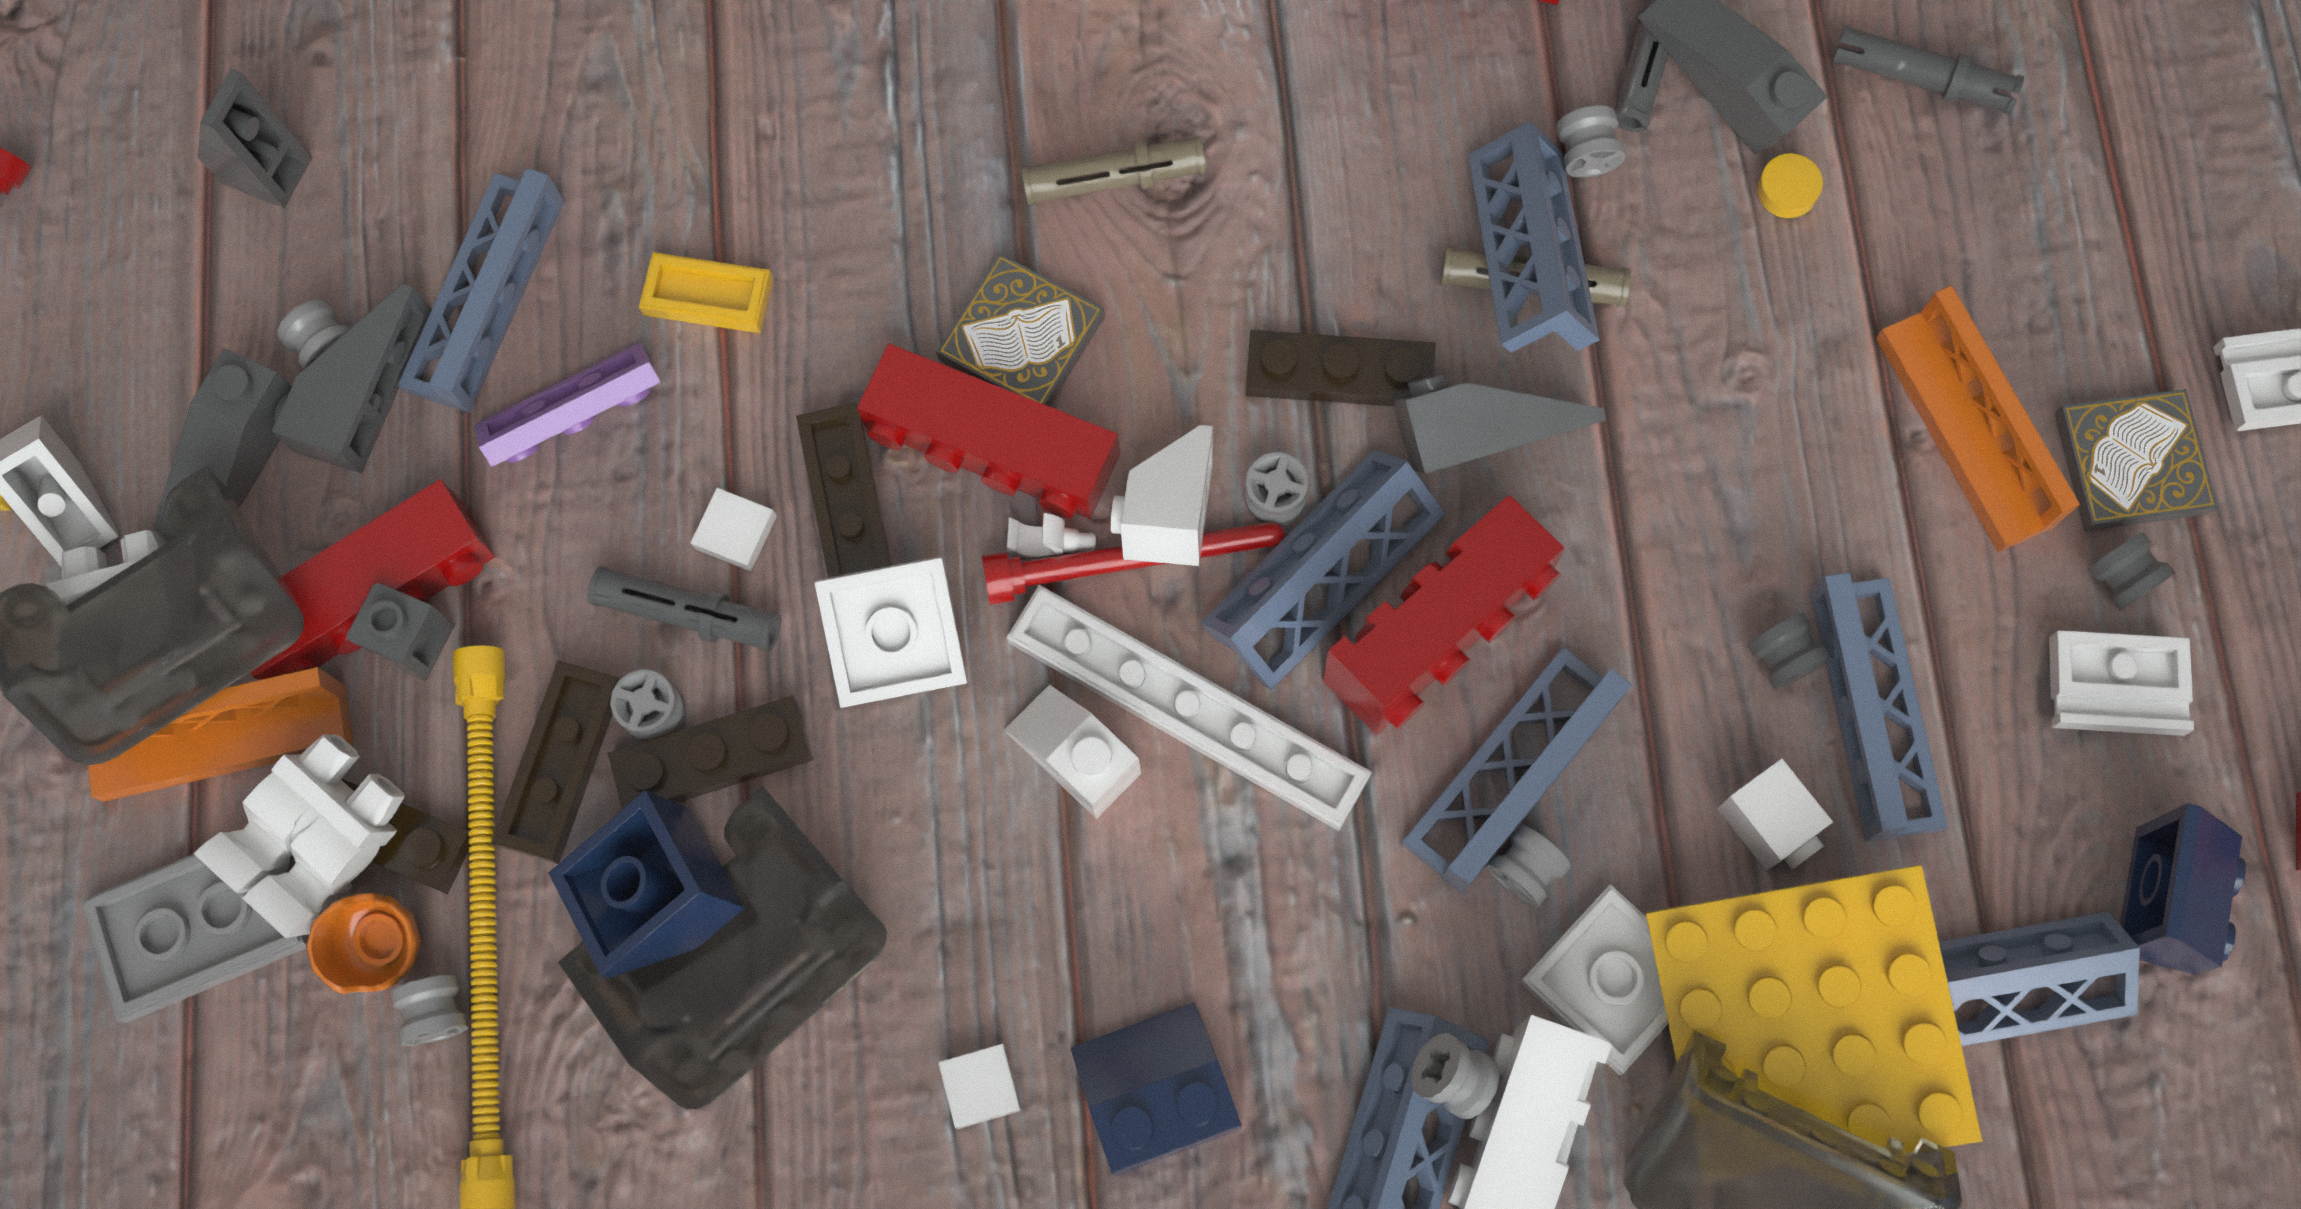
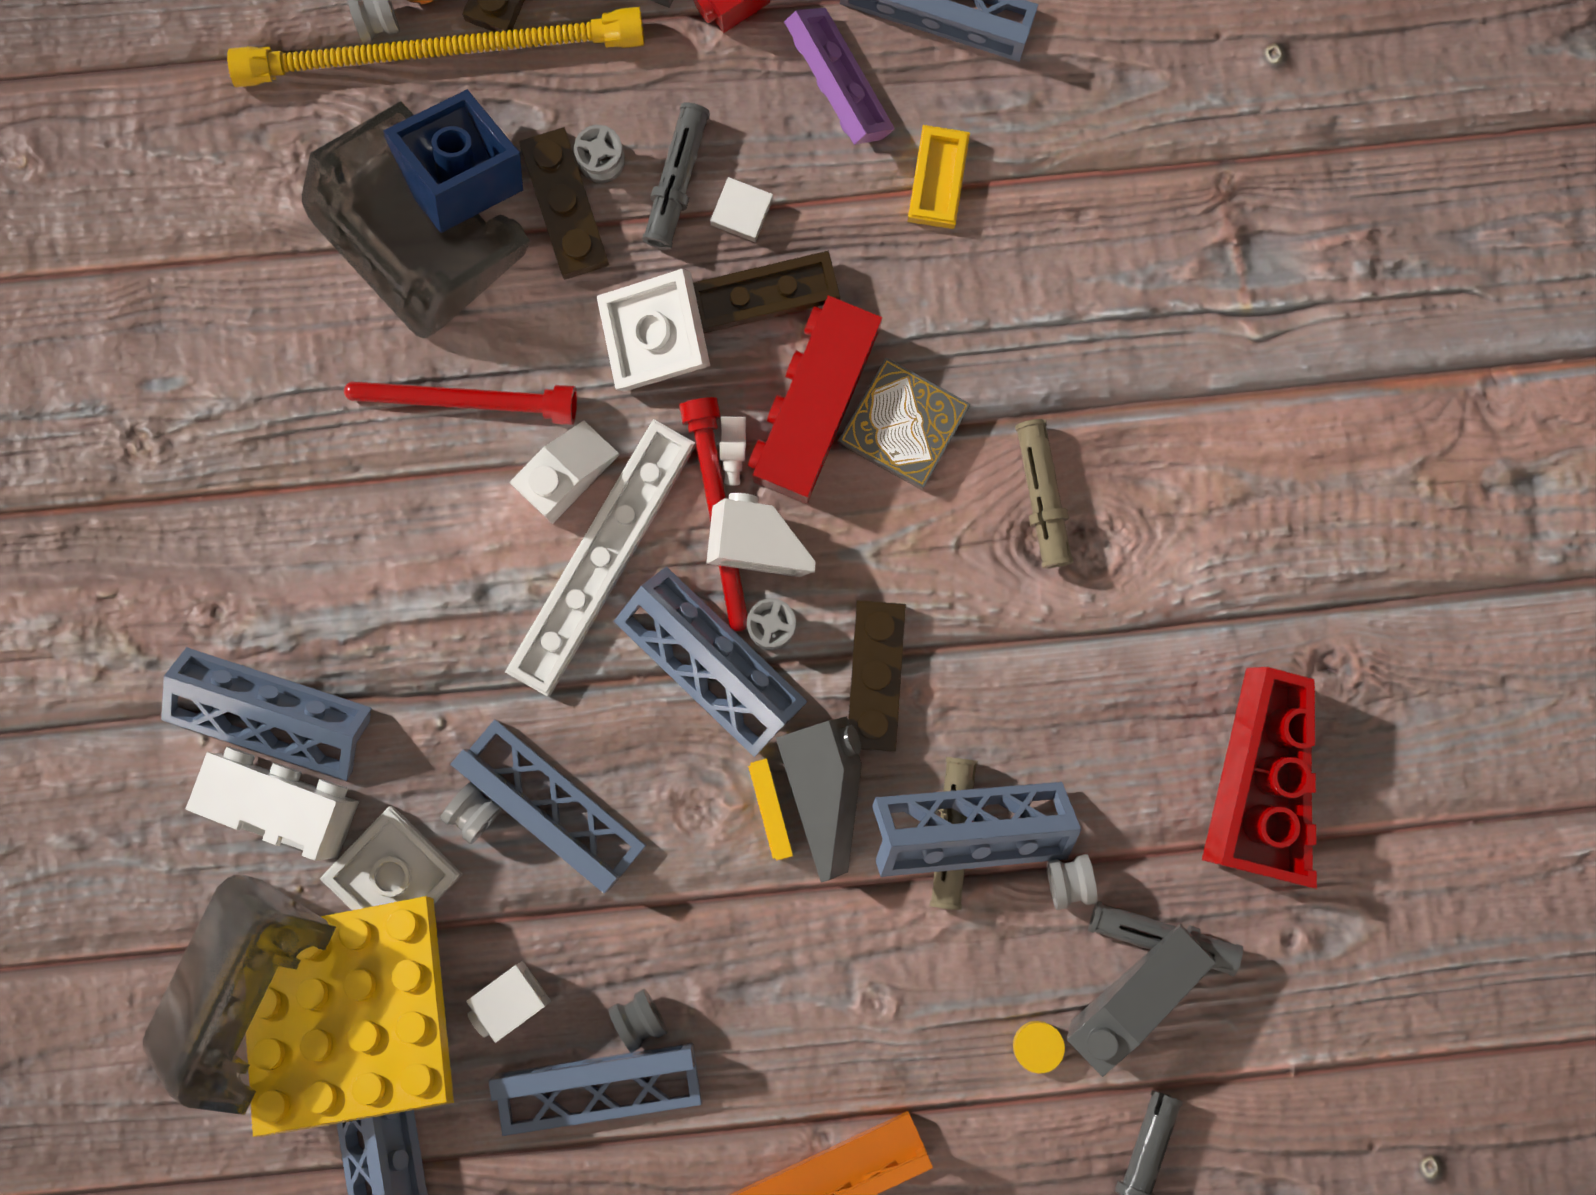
camera: 85 degrees right, 10 degrees up
(557, 763) = (556, 90): dark brown plate -> none
(979, 1086) = (318, 410): white tile -> none
(982, 762) = (555, 404): none -> red piece
(1155, 1089) = (309, 535): dark blue slope -> none
(1443, 616) = (664, 750): red wedge -> none
(1455, 1076) = (304, 749): light grey wheel -> none
(1525, 483) = (770, 809): none -> yellow tile

